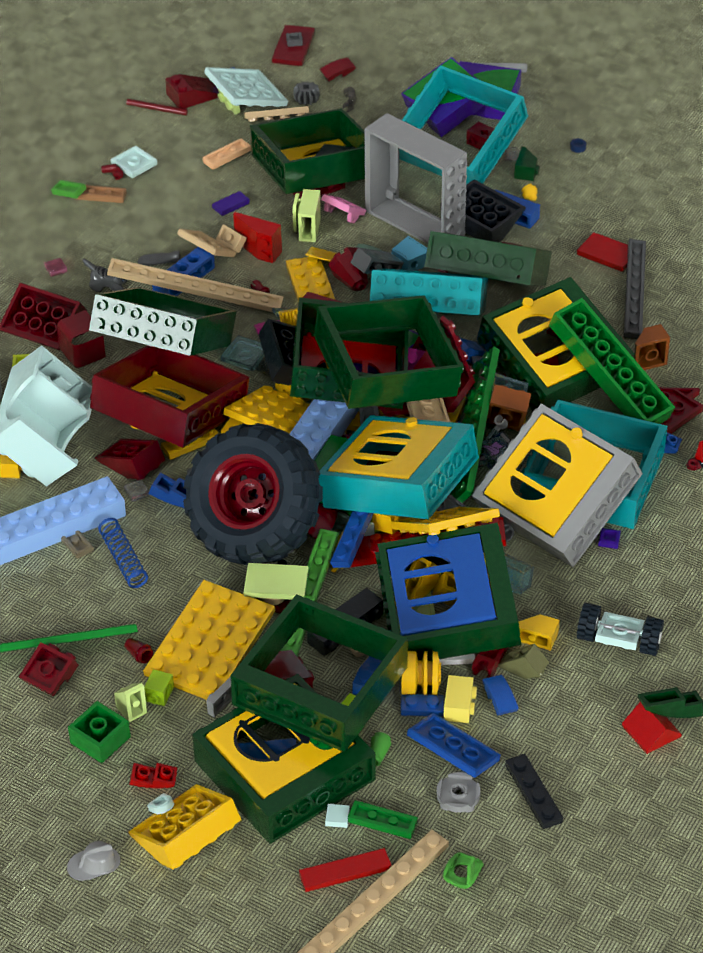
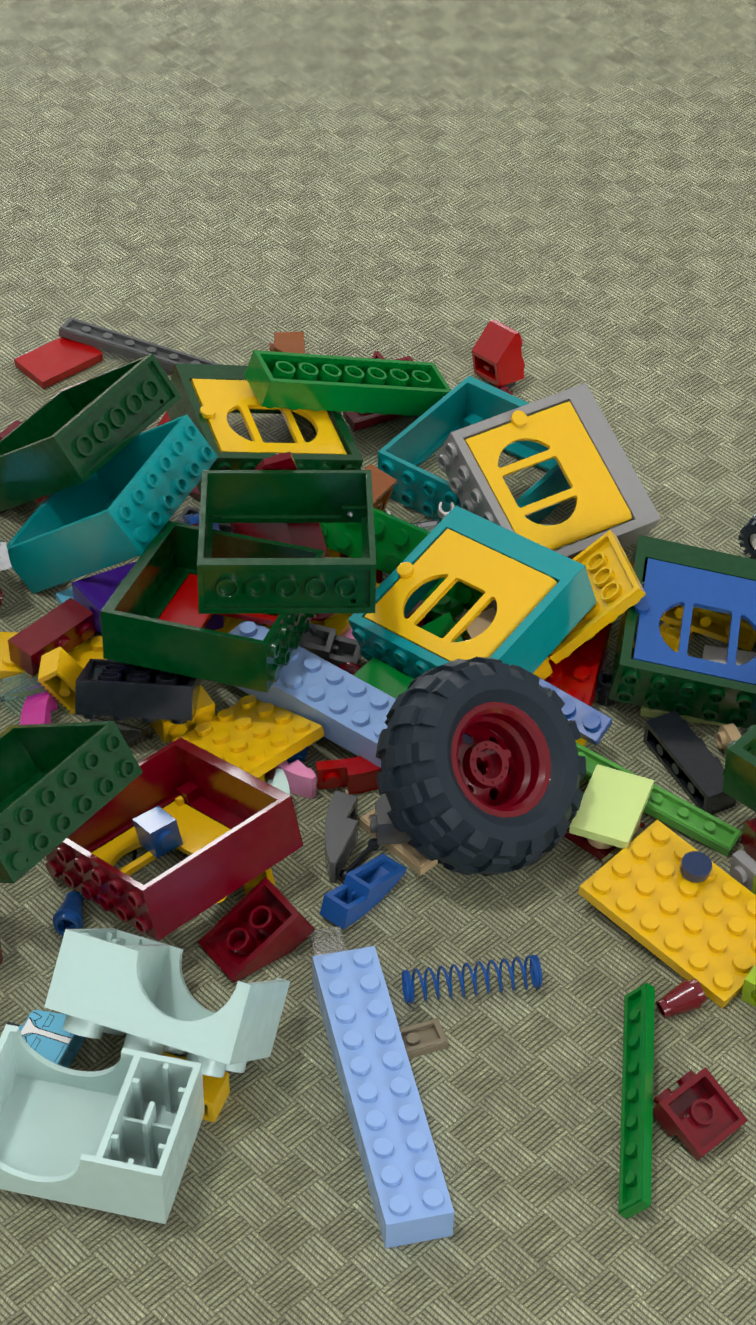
camera: 75 degrees left, 0 degrees up
(180, 391) = (157, 831): none -> blue brick
(236, 628) = (696, 866): none -> dark blue tile

